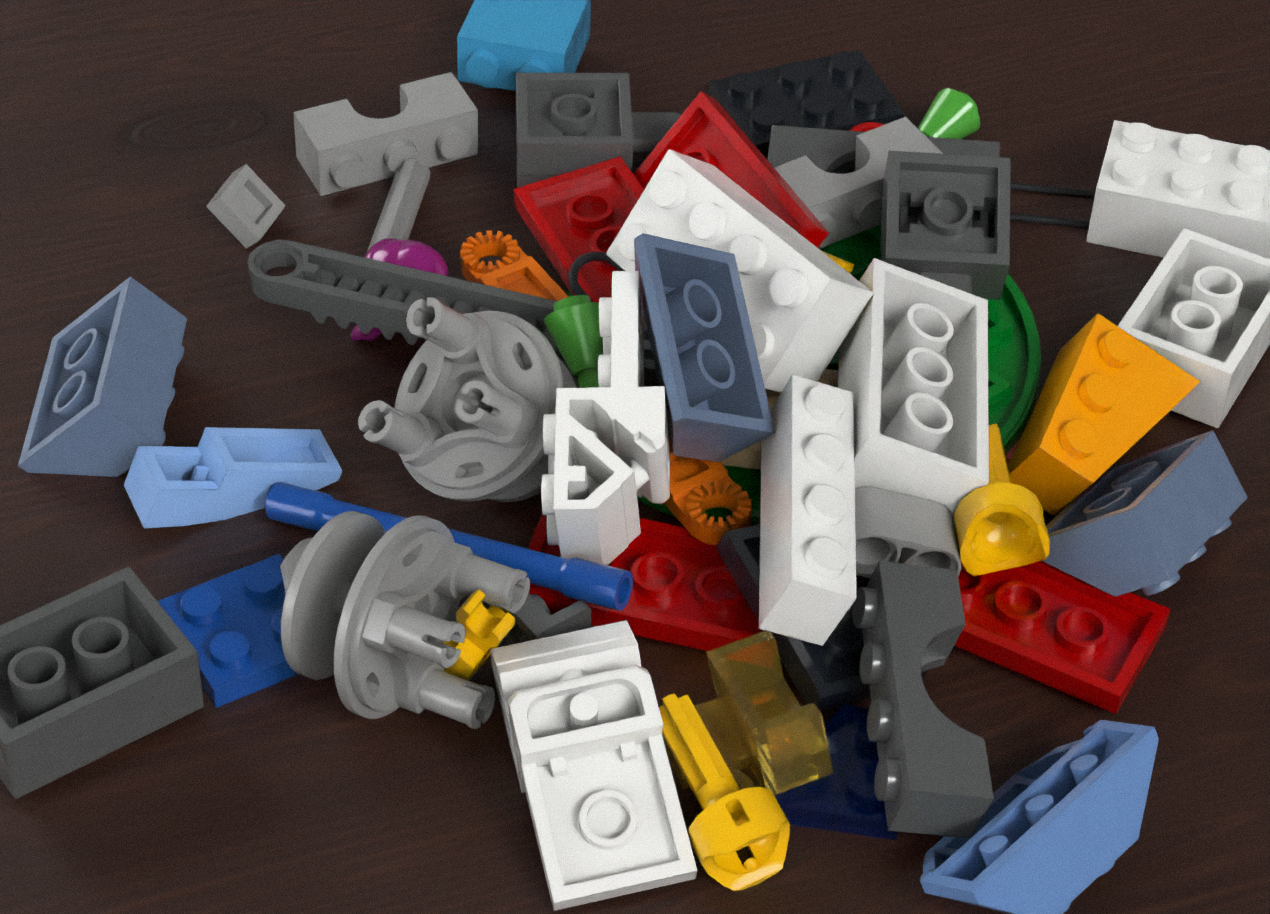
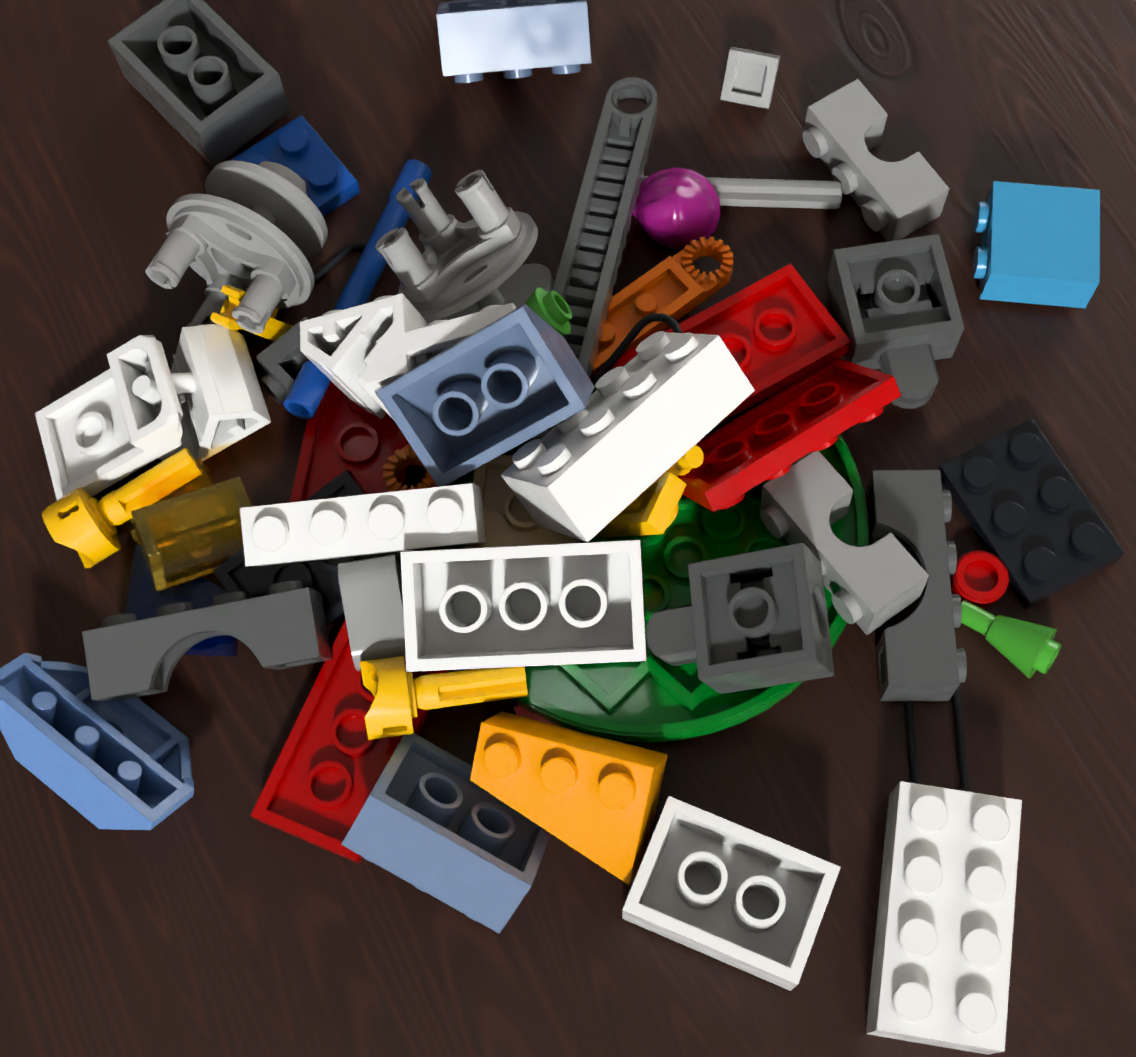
camera: 90 degrees right, 25 degrees up
(225, 474) = (432, 127): light blue slope -> none

